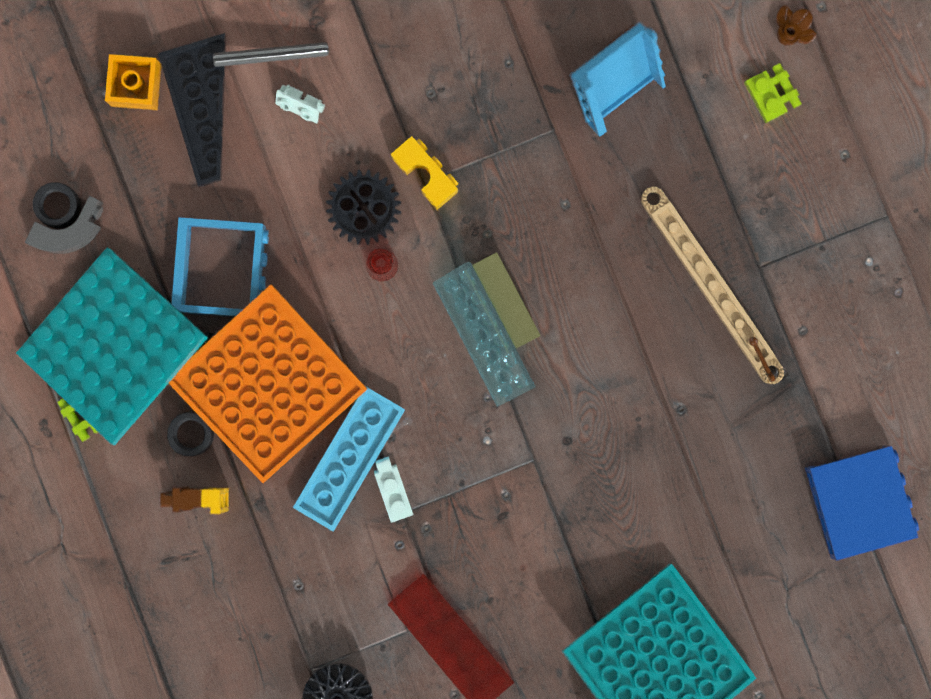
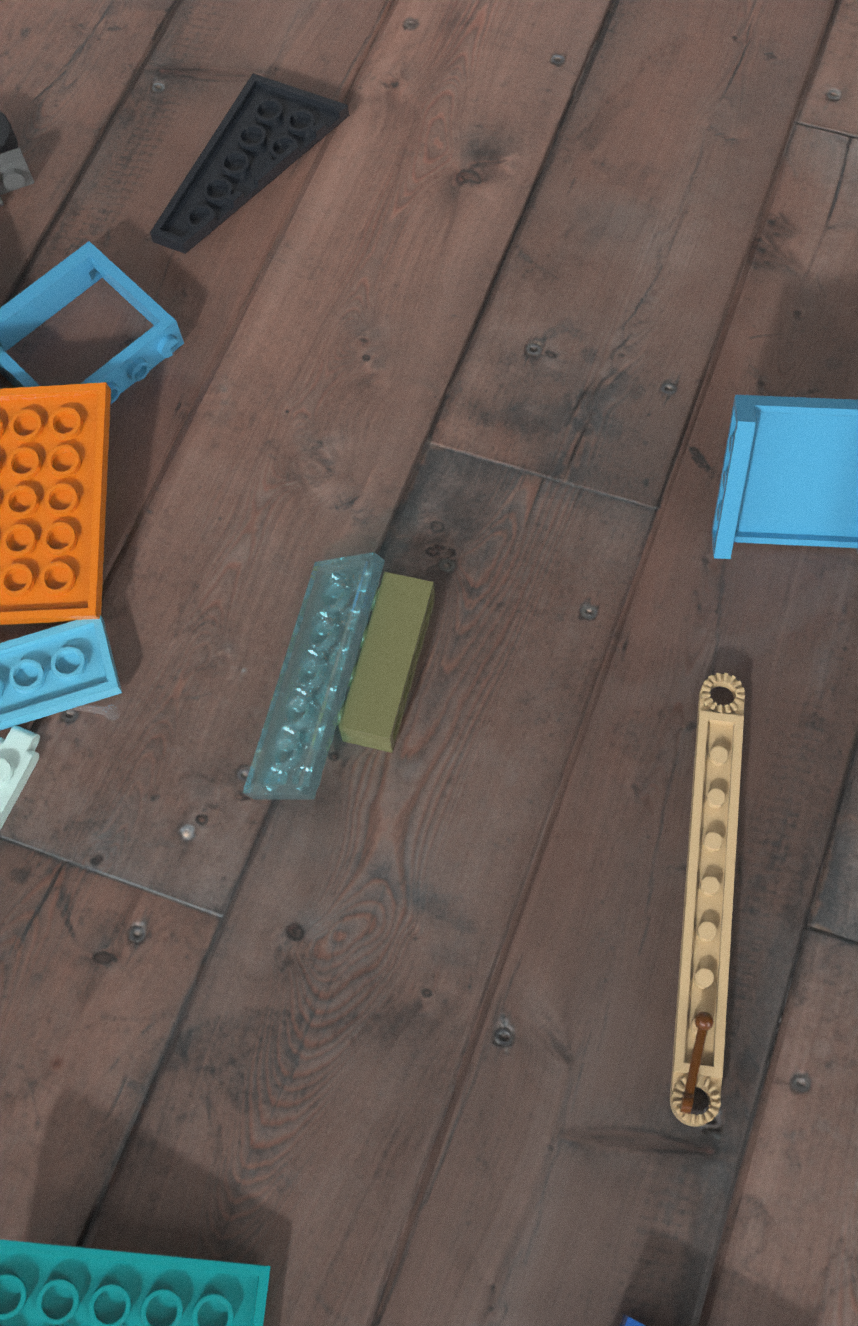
camera: 50 degrees right, 20 degrees down
(133, 82) = (193, 77): light orange brick -> none
(270, 54) = (379, 162): dark grey axle -> none
(289, 100) = (358, 238): light aqua hinge -> none
(380, 195) = (354, 405): black gear -> none
(381, 273) = (272, 485): clear red plant -> none
(413, 156) = (435, 451): yellow arch -> none

